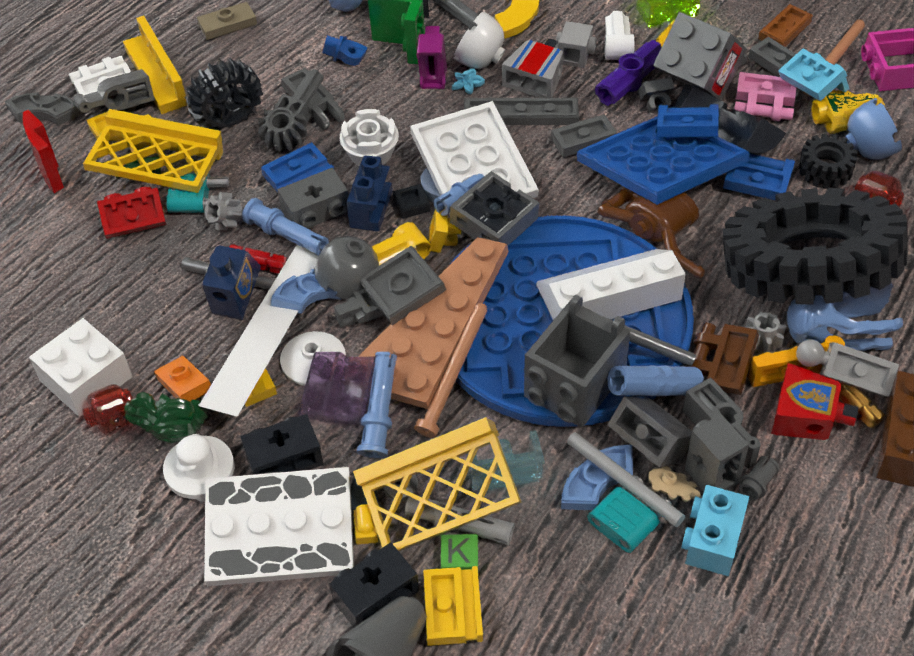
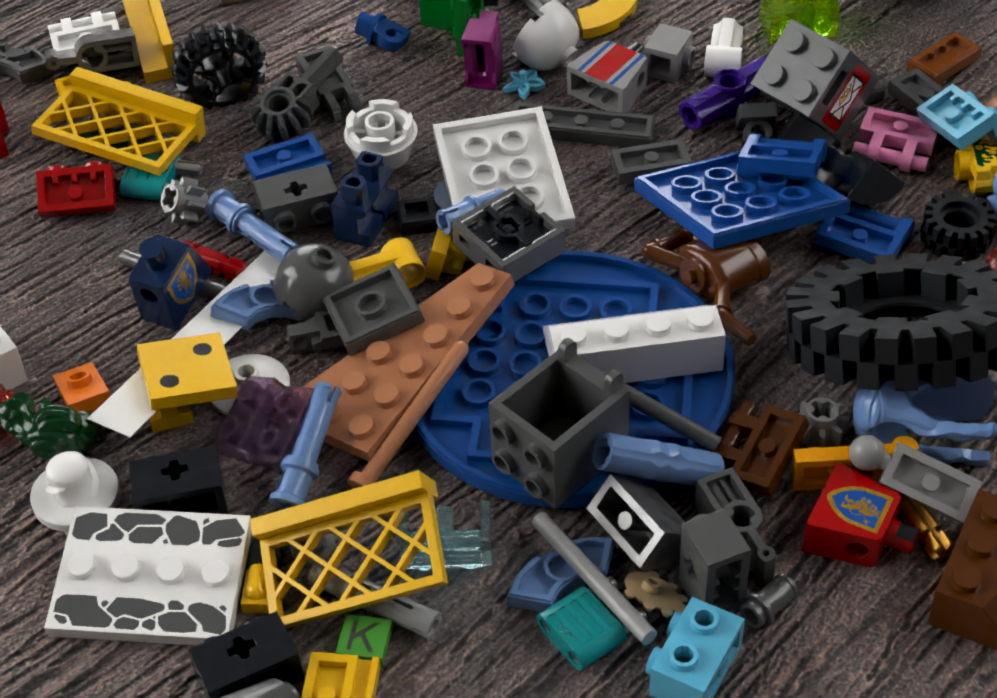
camera: 10 degrees right, 5 degrees down
(267, 355) = (186, 371): none -> yellow tile

